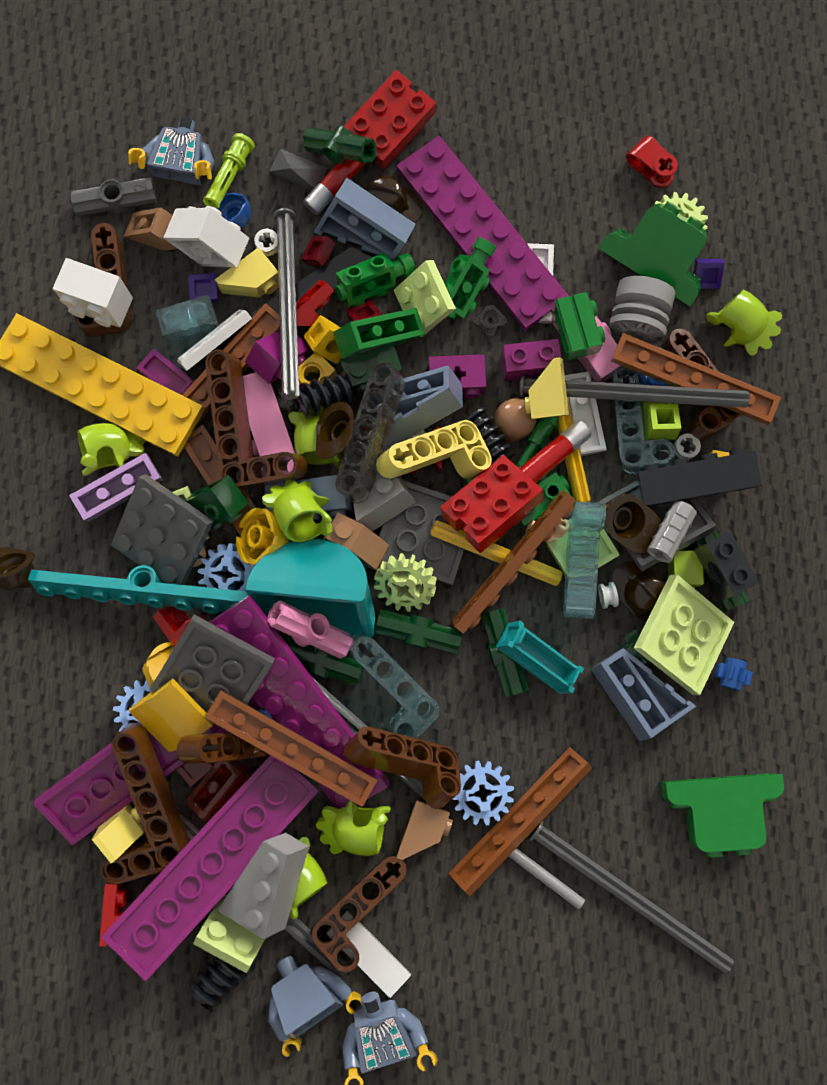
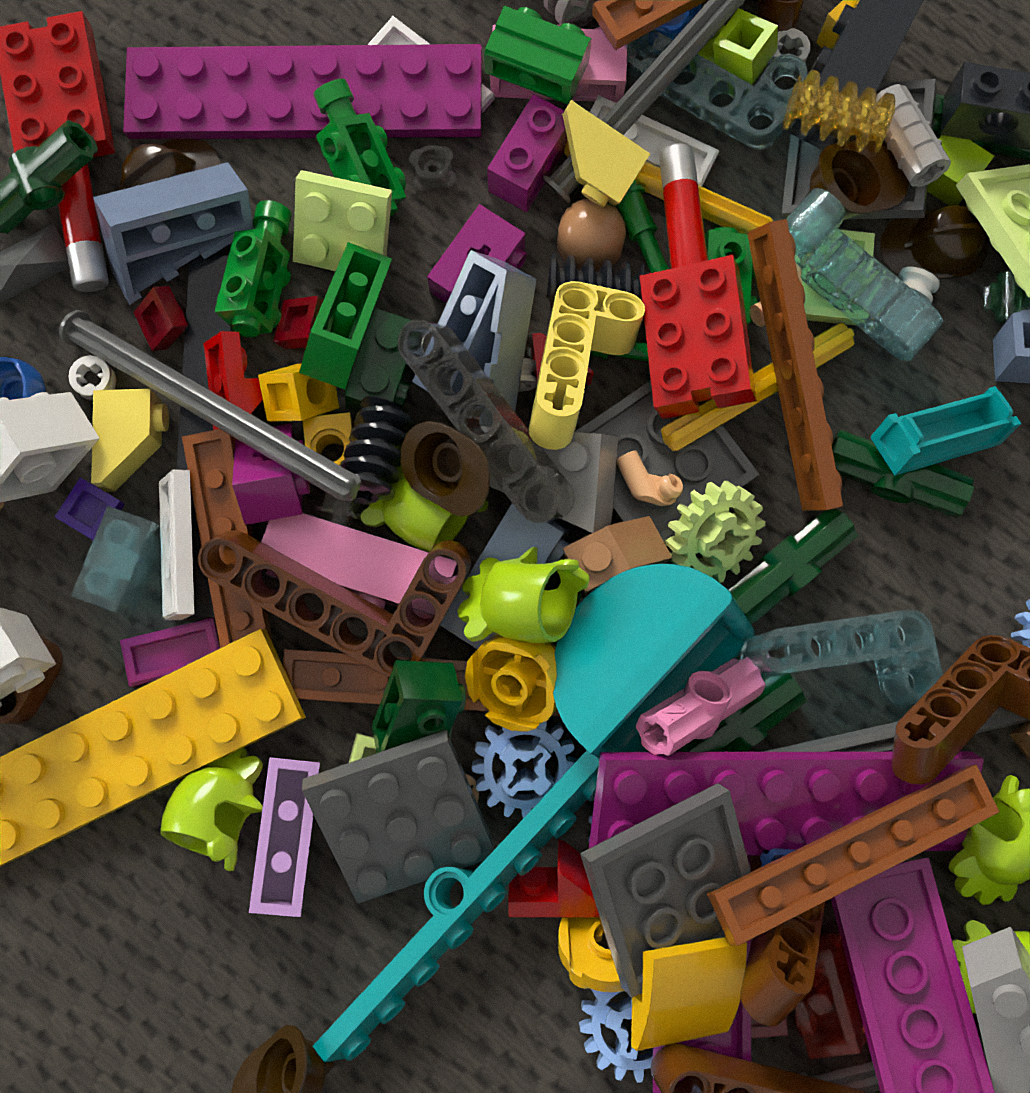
camera: 50 degrees left, 0 degrees up
(403, 533) = (646, 486): none -> light nougat arm
(650, 485) = (840, 110): none -> clear yellow piece

